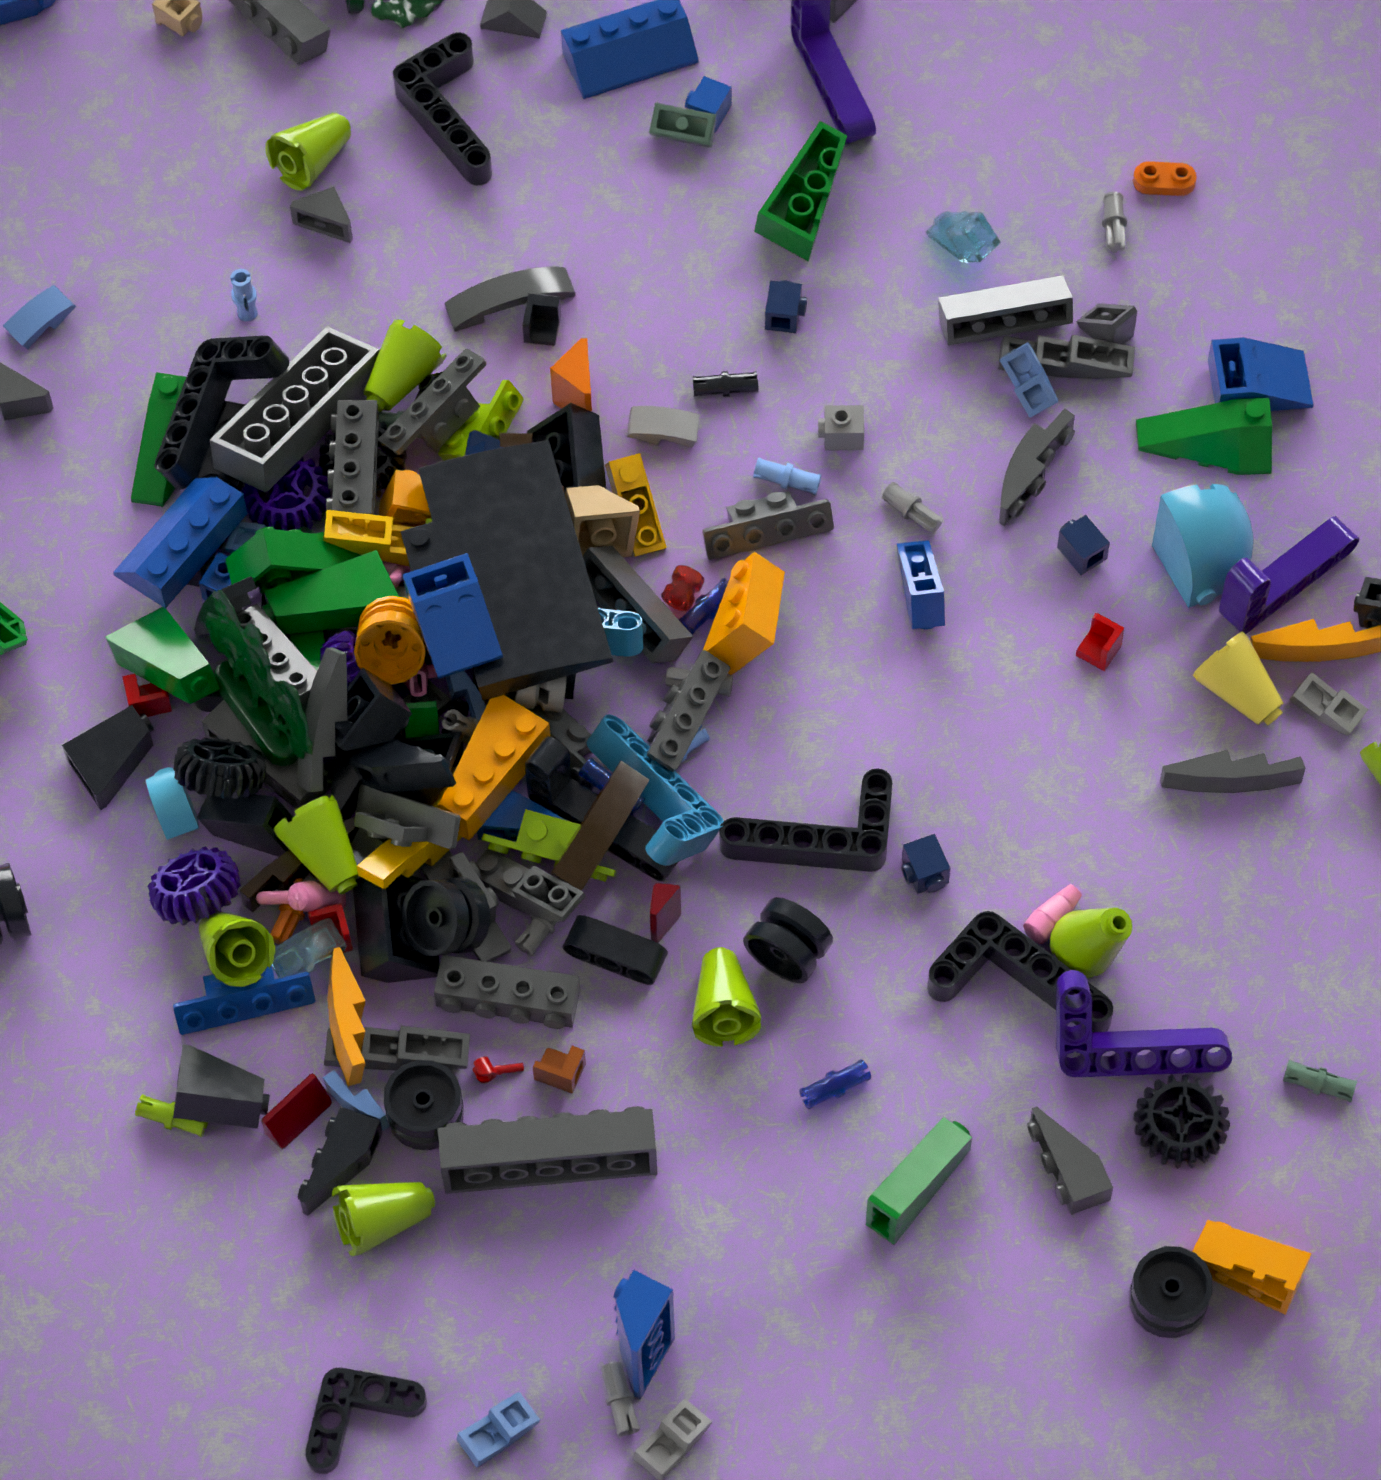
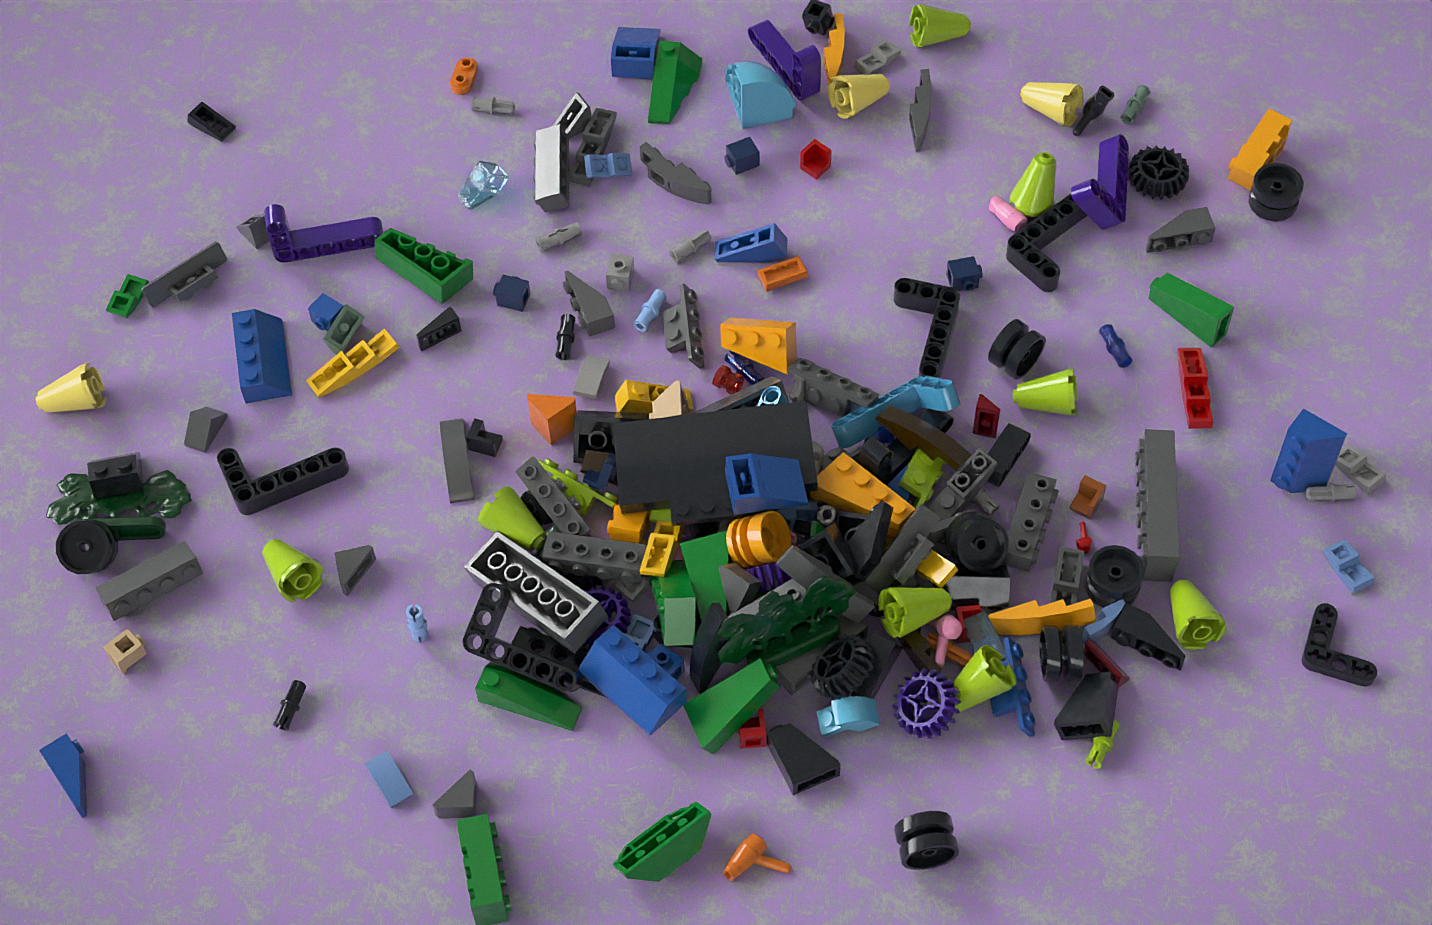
camera: 80 degrees left, 5 degrees down
(127, 194) = (290, 705): none -> black axle
(288, 1041) = (1061, 653): none -> black wheel
(317, 624) = (739, 586): none -> dark grey slope
(638, 153) = (349, 366): none -> yellow slope
(709, 235) = (439, 329): none -> black slope
(776, 403) = (591, 305): none -> dark grey slope
(779, 1200) = (1195, 388): none -> red slope
(883, 630) = (782, 273): none -> orange plate
(894, 344) = (558, 236): none -> light grey pin
(1286, 957) = (1054, 100): none -> light yellow cone
(1291, 1016) = (1094, 108): none -> black piece

